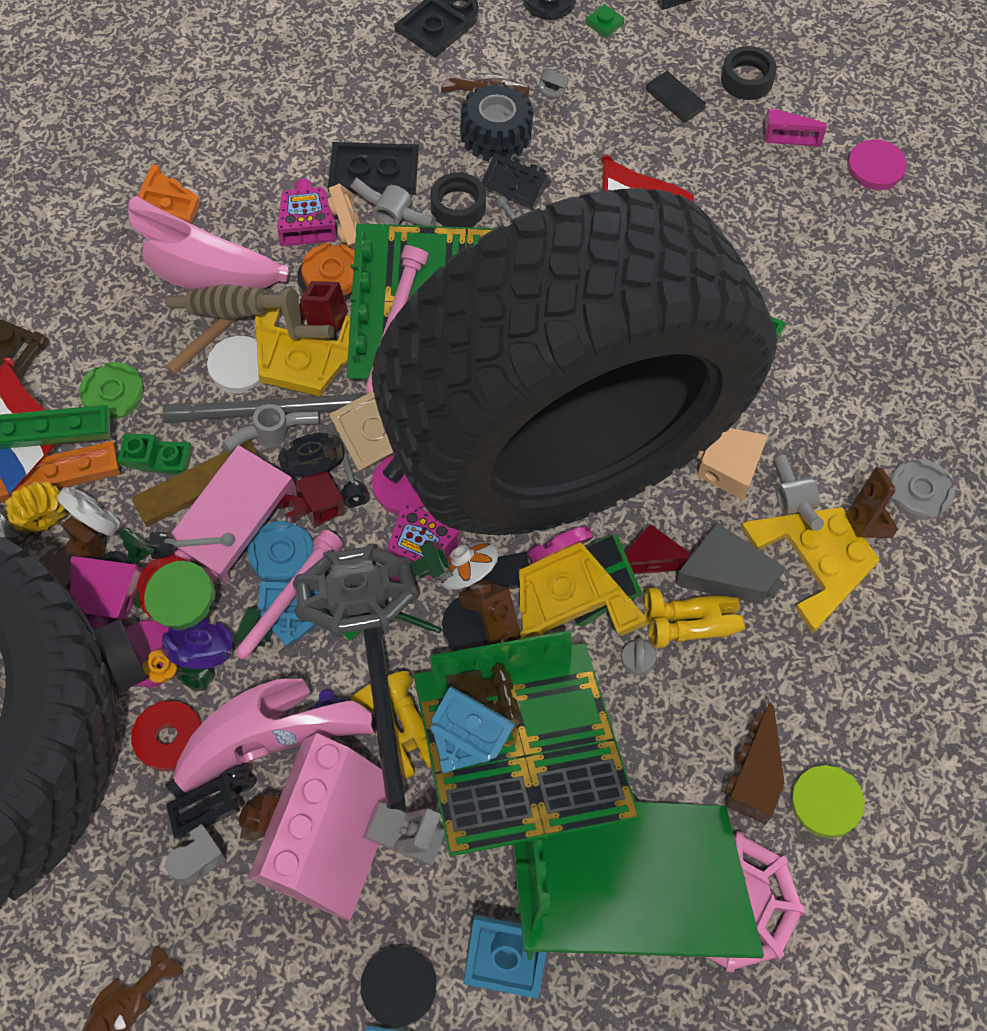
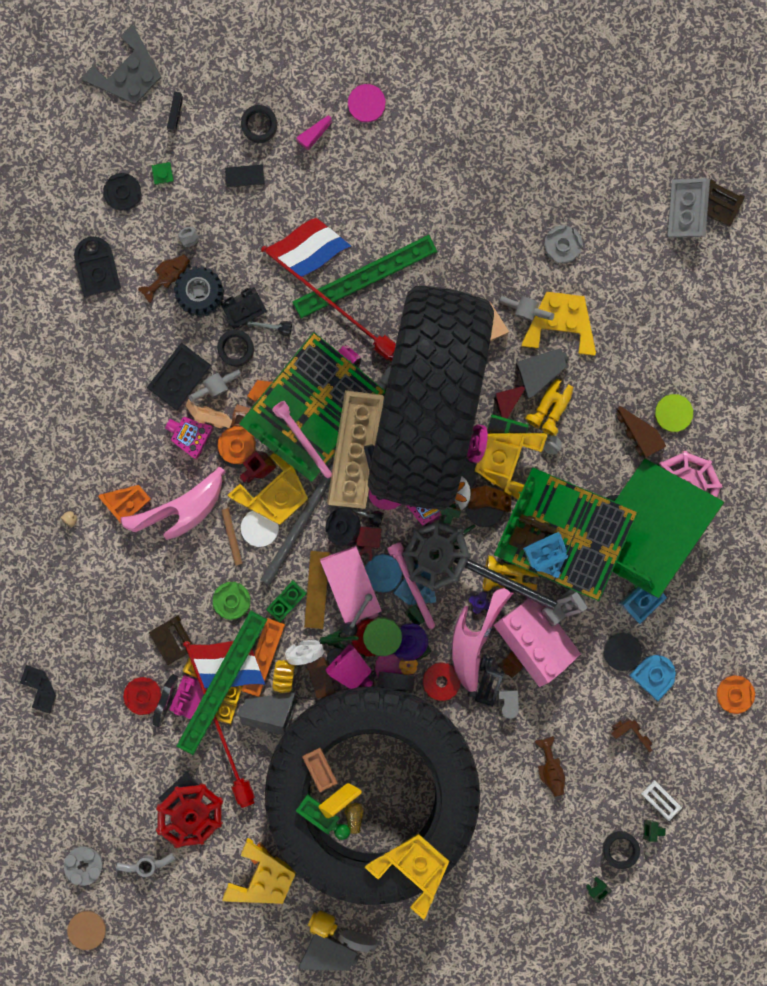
camera: 50 degrees left, 25 degrees up
(99, 155) = (69, 518): none -> tan hinge
(236, 301) = (228, 508): dark tan piece -> none
(273, 435) = (309, 545): light grey piece -> none
(868, 509) = (562, 283): reddish brown bracket -> none

